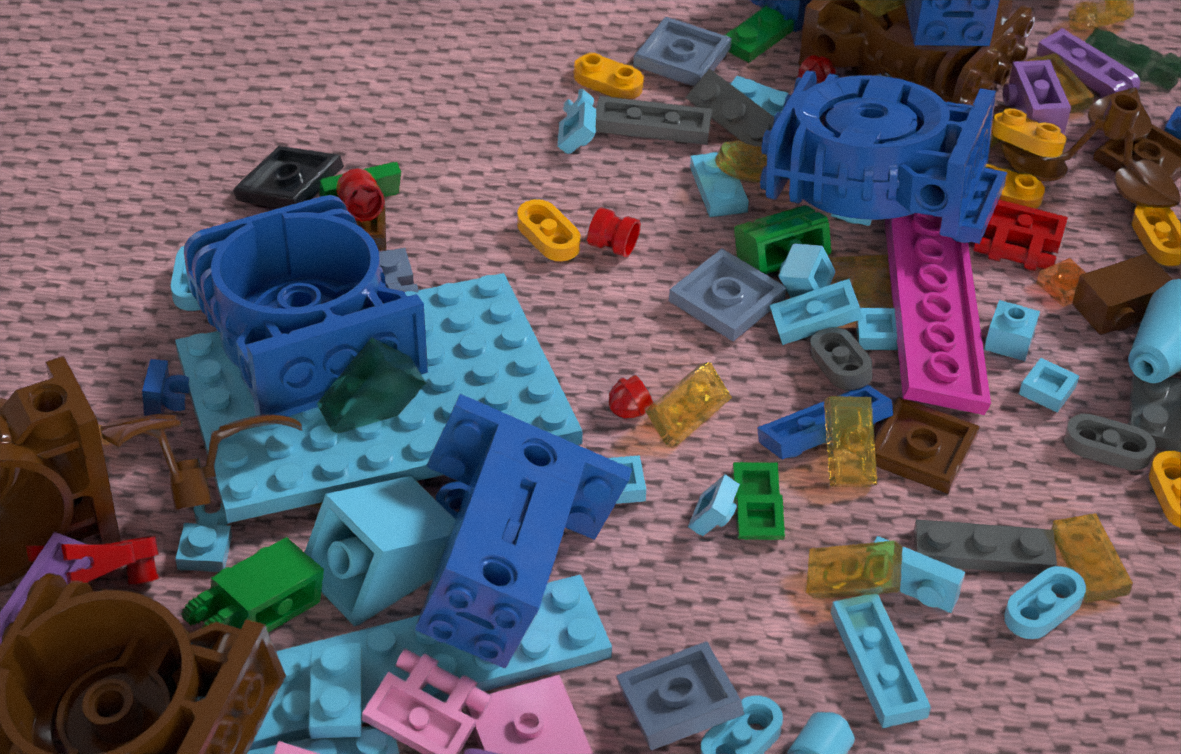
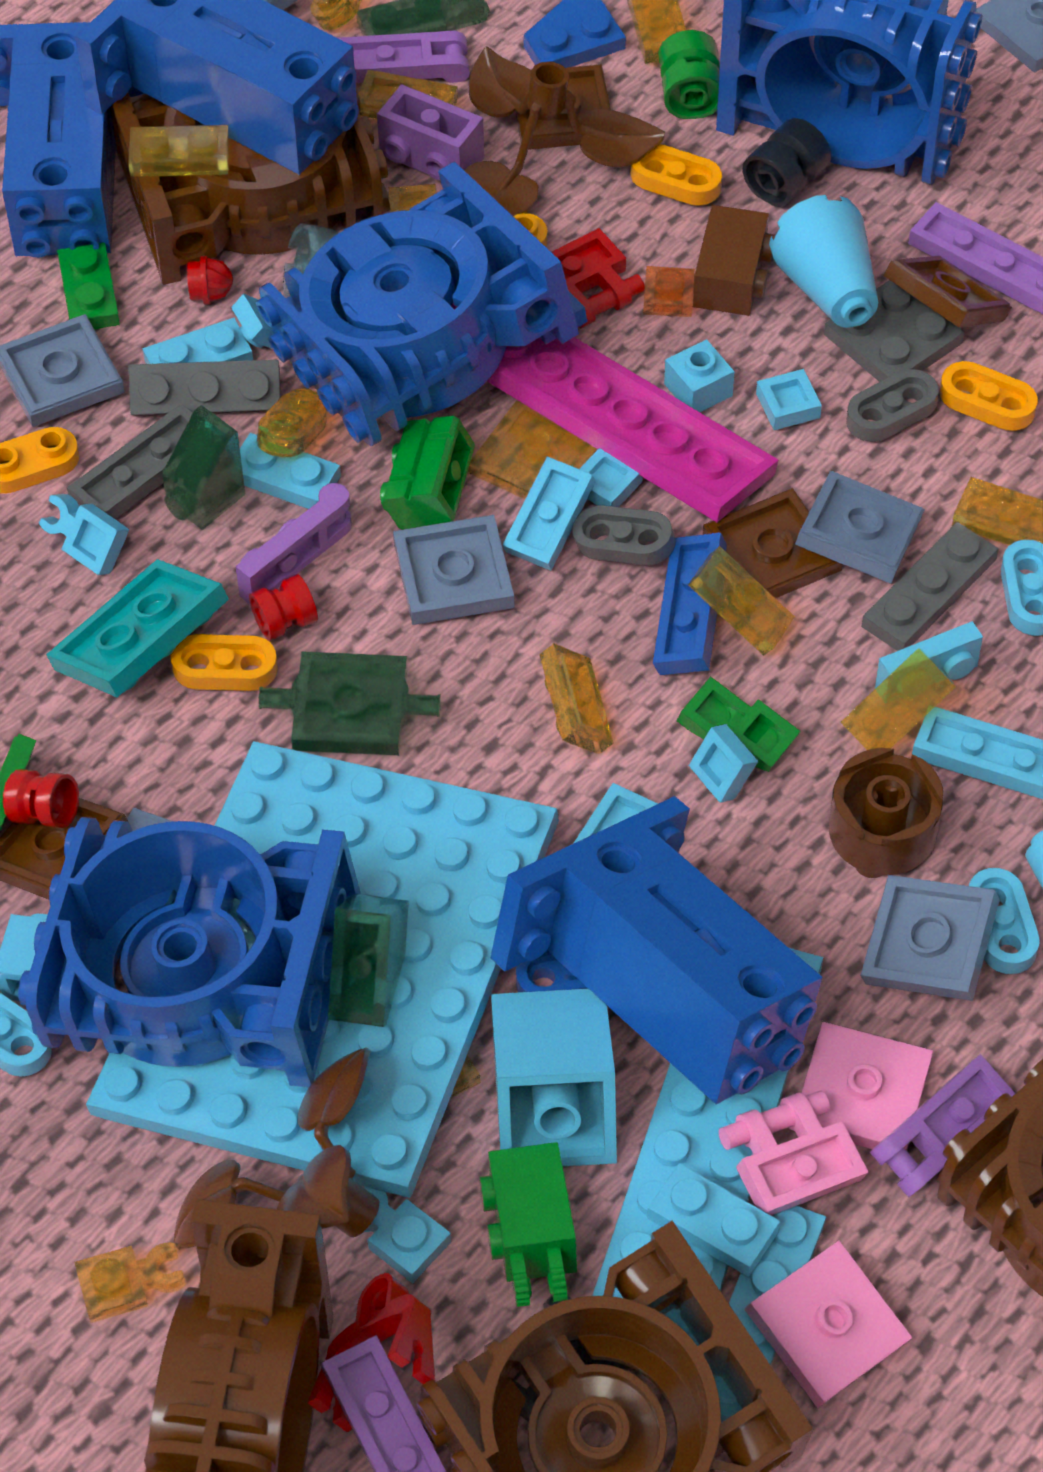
camera: 50 degrees left, 10 degrees up
(161, 390) = (157, 1163): blue tile -> none
(529, 177) = (137, 627): none -> teal plate
(576, 301) = (349, 703): none -> clear green plate
(629, 398) = (525, 742): red plate -> none
(667, 141) = (204, 470): none -> clear green slope
(670, 212) = (296, 542): none -> medium lavender plate
(757, 612) = (885, 812): none -> reddish brown brick
(806, 269) = (492, 485): medium azure plate -> none
(986, 477) = (860, 526): none -> sand blue plate
(1035, 137) = (494, 170): light orange plate -> none

